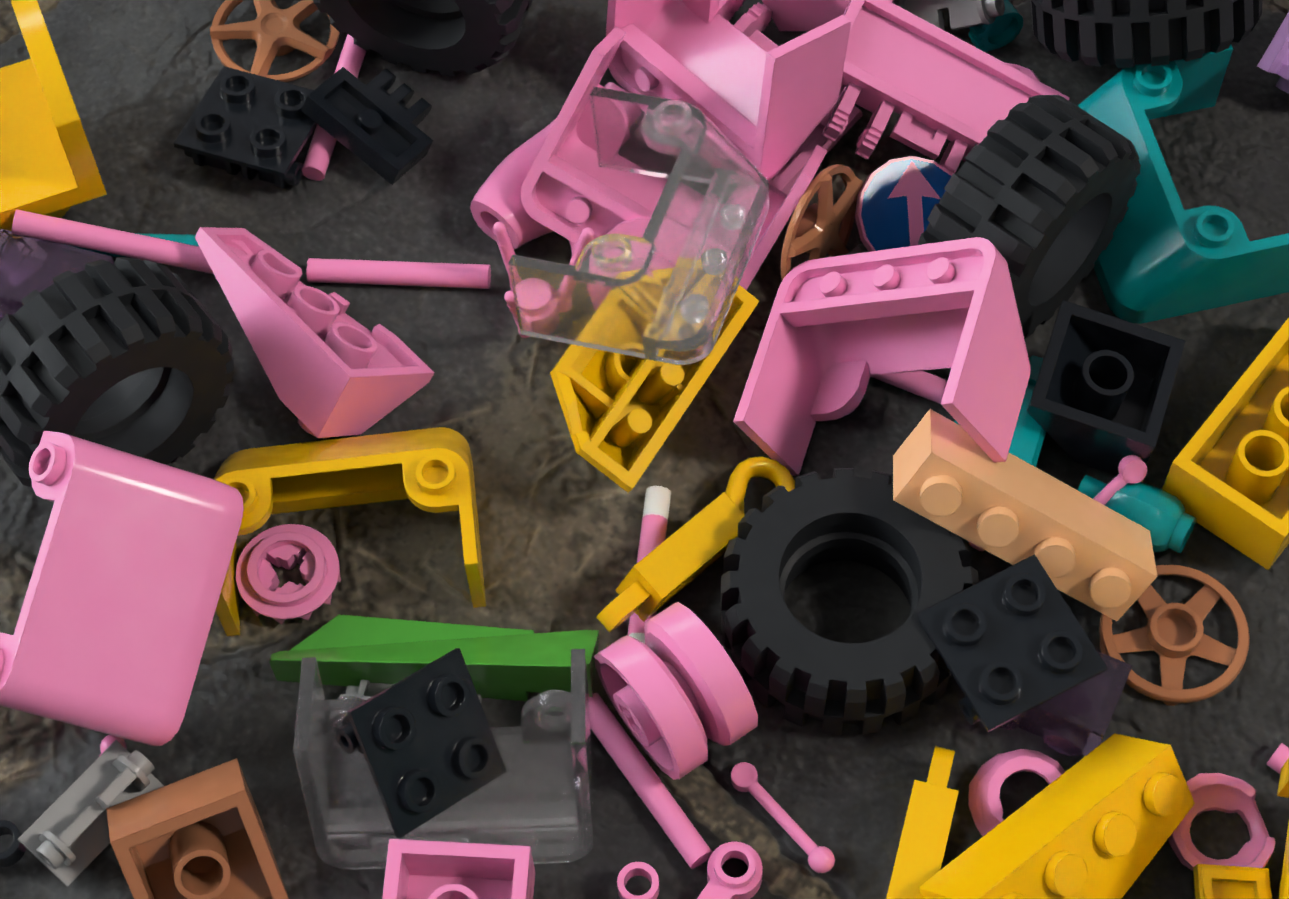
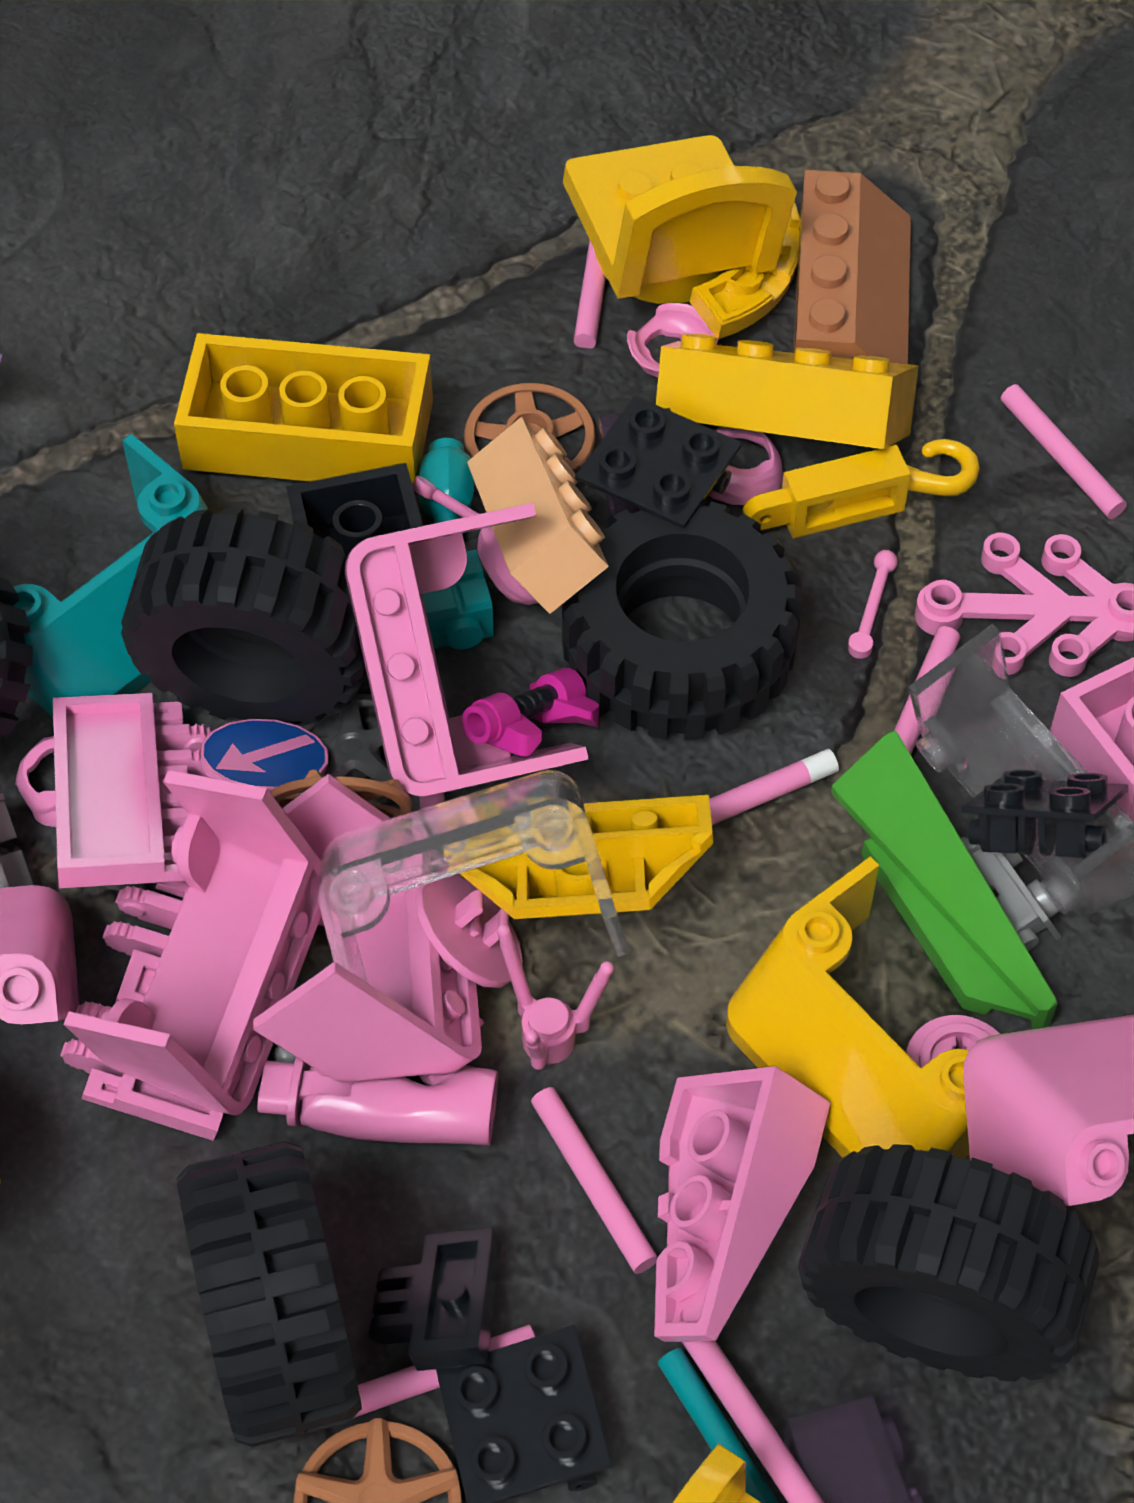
camera: 125 degrees left, 5 degrees down
(676, 690) = (843, 679): bright pink wheel -> none
(690, 548) = (715, 754): yellow piece -> none
(826, 387) = (551, 699): none -> dark pink piece

